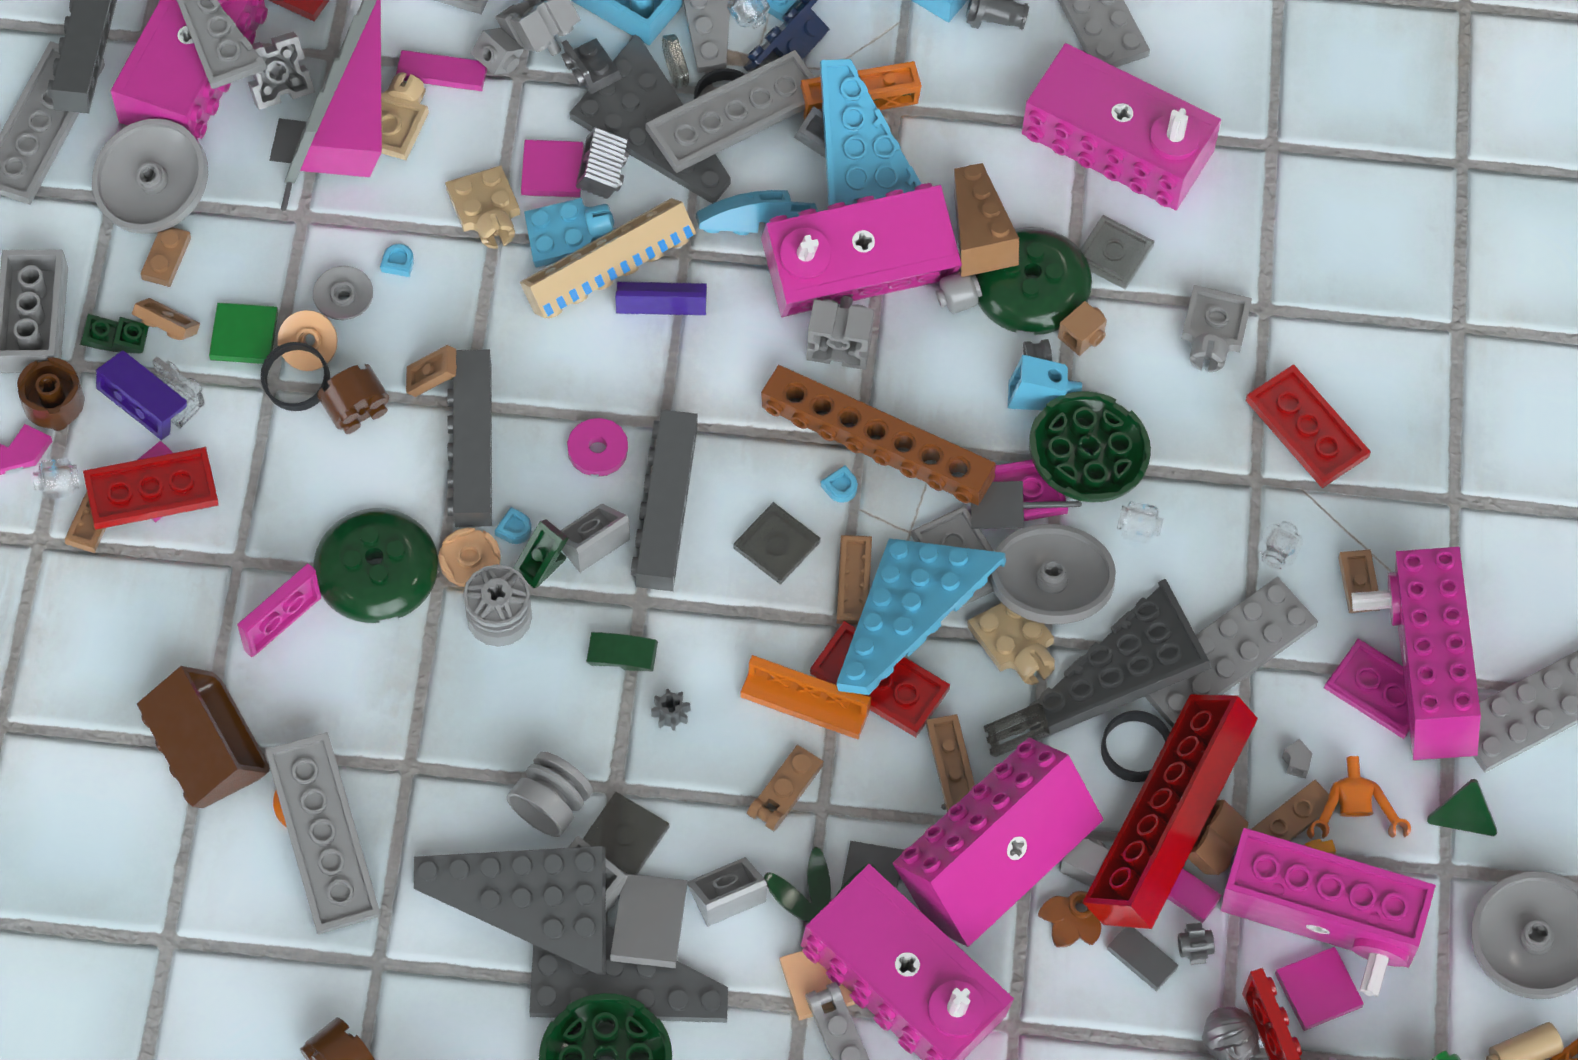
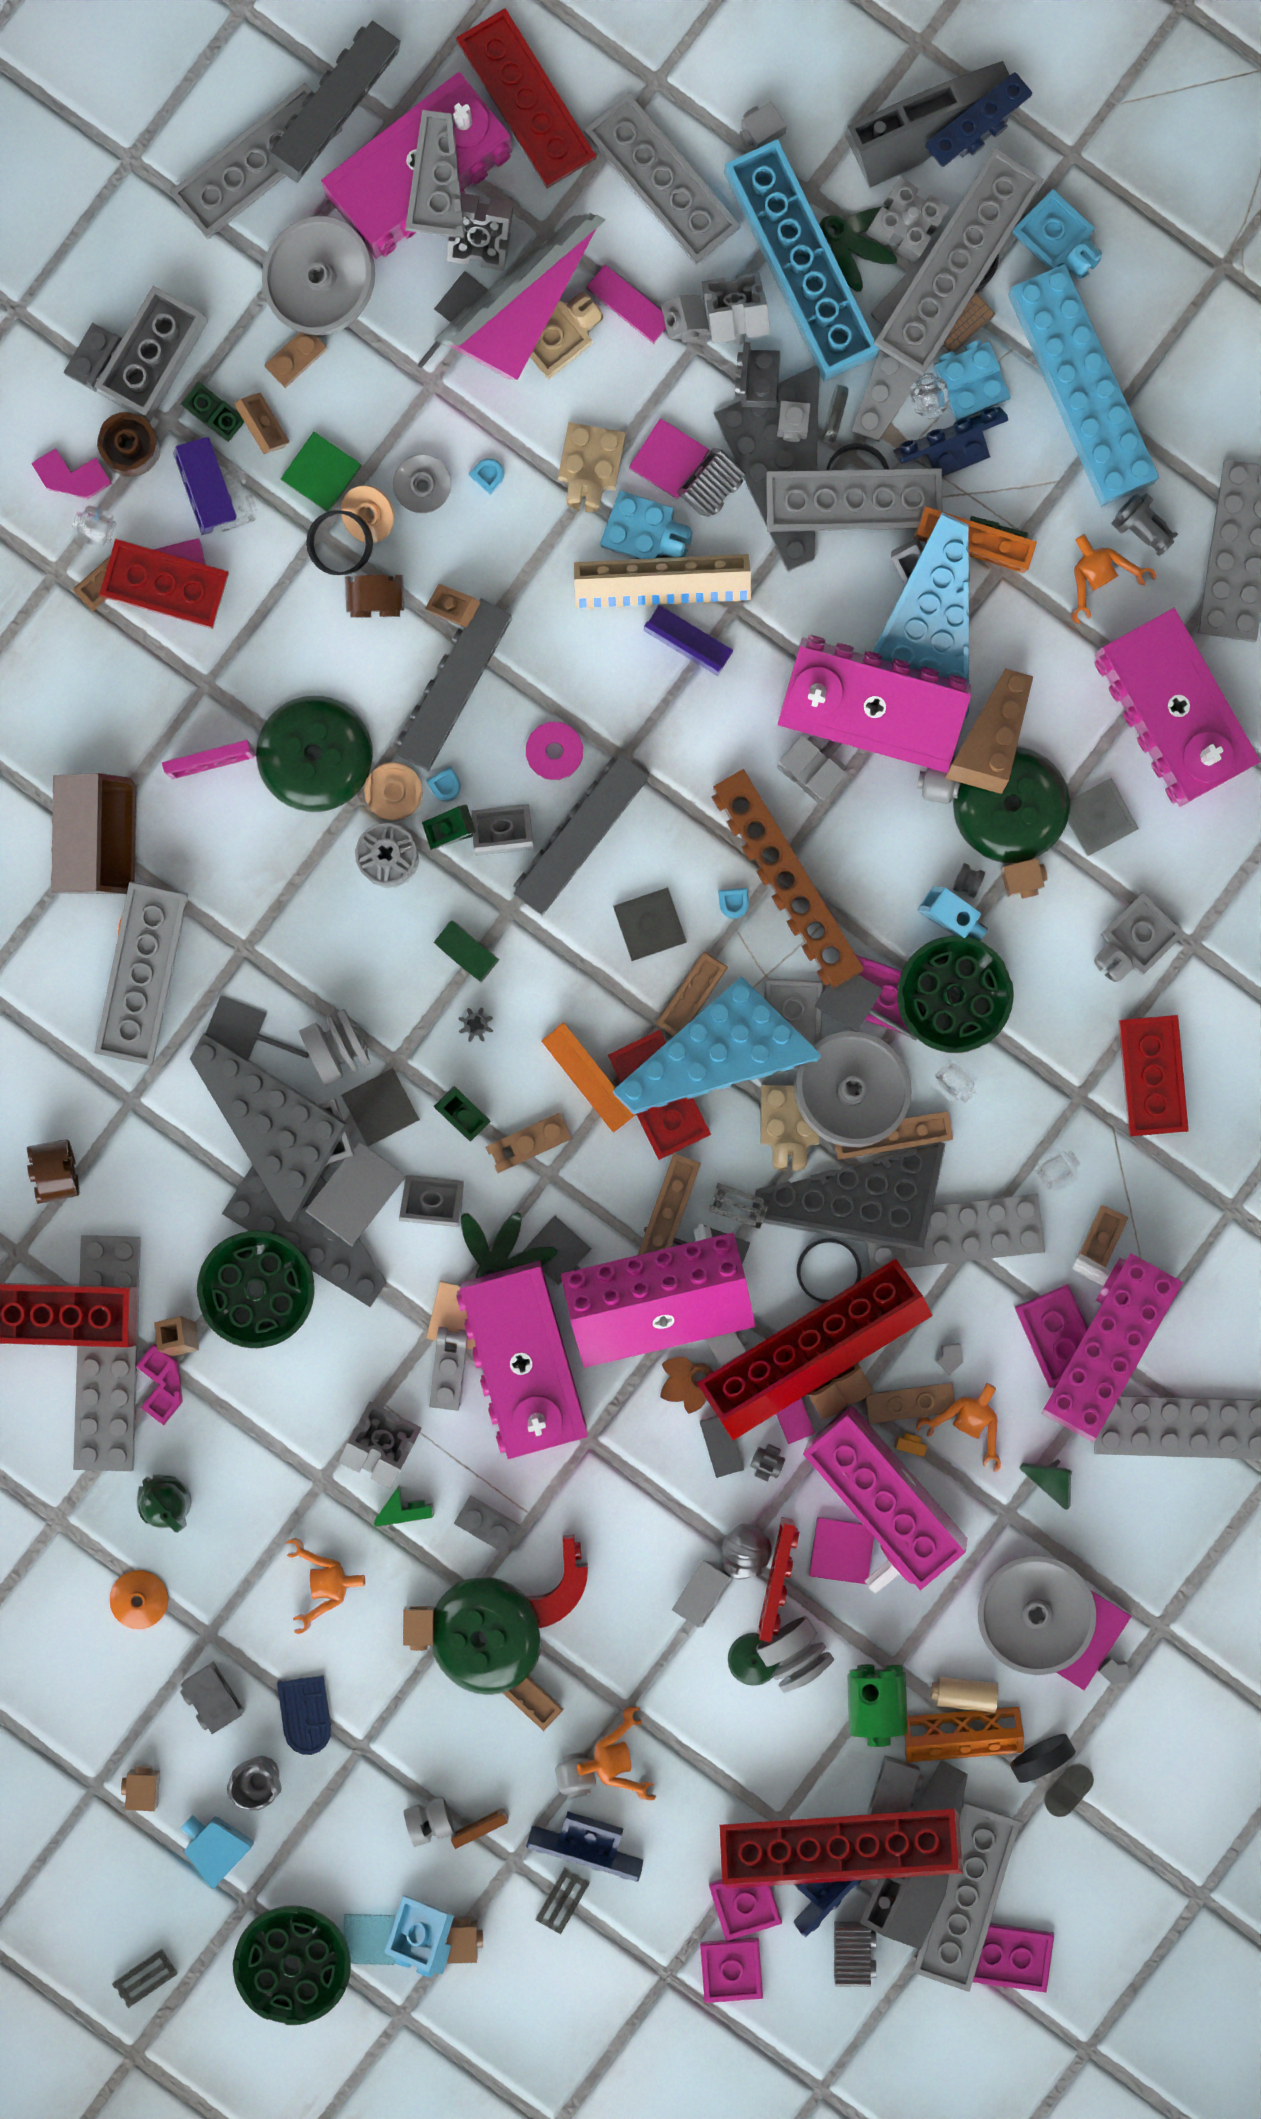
camera: 30 degrees right, 25 degrees up
(449, 834) = (240, 1027): none -> dark grey piece
(643, 75) = (793, 421): none -> light grey brick
(705, 790) = (462, 1113): none -> dark green slope
(745, 211) = (807, 603): medium azure slope -> none
(978, 65) = (1098, 571): none -> orange piece
(1129, 587) = (910, 1133): none -> medium nougat plate

